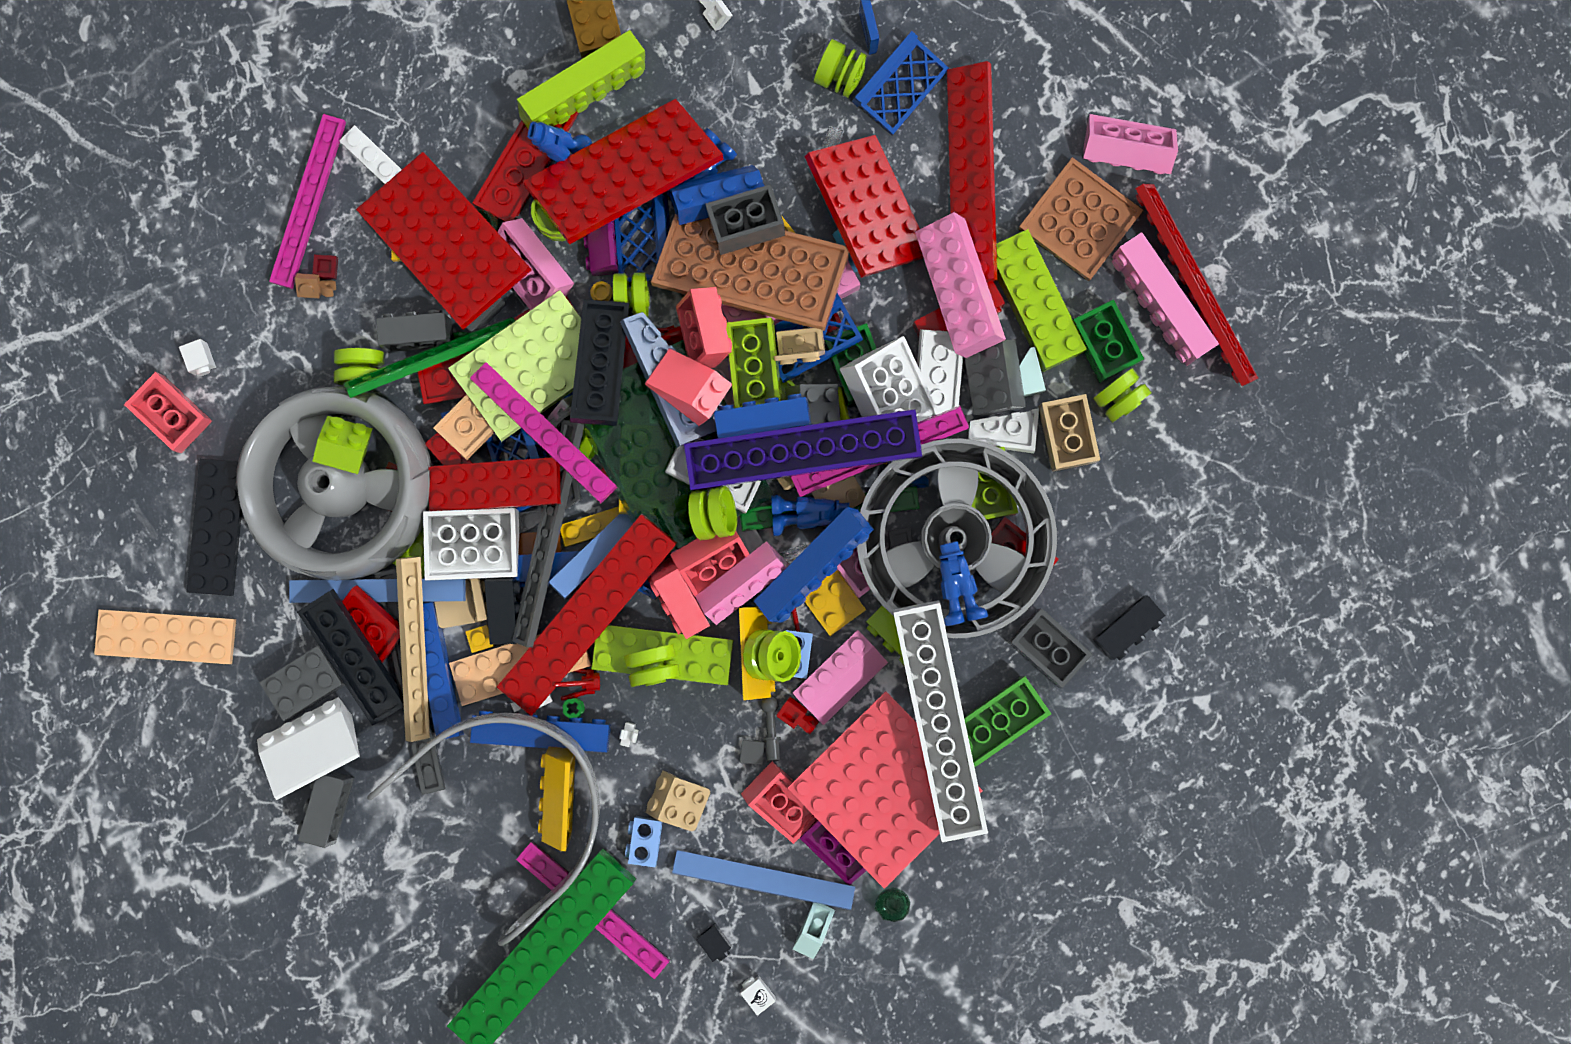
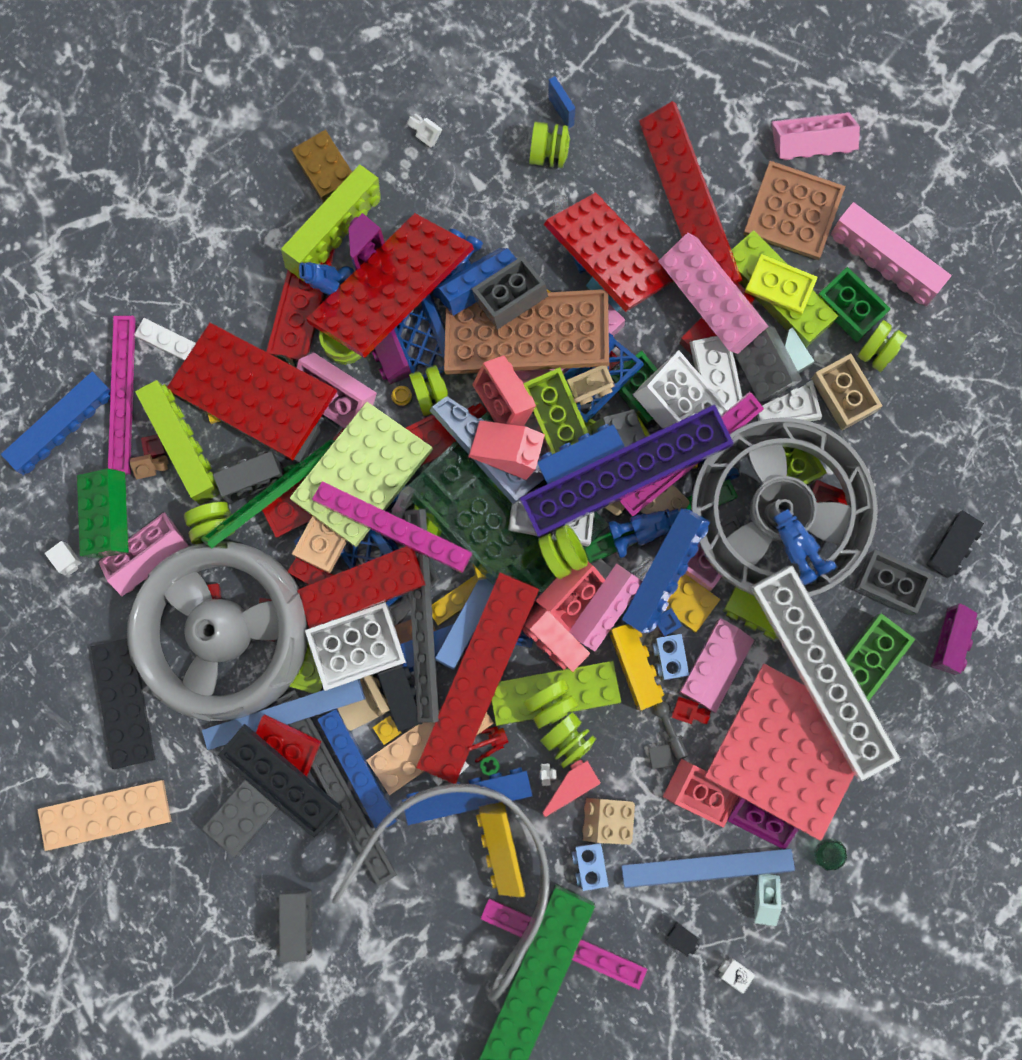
camera: 10 degrees left, 5 degrees down
(168, 412) = (51, 614): coral brick -> none
(231, 212) = (57, 424): none -> blue brick
(250, 323) = (102, 513): none -> green brick
(280, 377) = (146, 551): none -> bright pink slope
(308, 747) = (263, 874): white slope -> none
(342, 444) = (216, 592): lime brick -> none
(351, 270) = (178, 442): none -> lime brick
(412, 648) = (332, 755): tan plate -> none
(599, 363) = (423, 451): black plate -> none
(608, 114) = (364, 239): none -> magenta slope
(655, 753) = (574, 784): none -> coral slope
(661, 707) = (568, 740): none -> lime wheel
(772, 655) = (654, 662): lime wheel -> none
(803, 617) = (668, 622): none -> blue tile
(887, 69) = (588, 135): blue fence -> none
(1036, 297) = (781, 284): none -> neon yellow tile
(1095, 726) = (955, 639): none -> magenta slope
(1193, 277) = (905, 229): red plate -> none

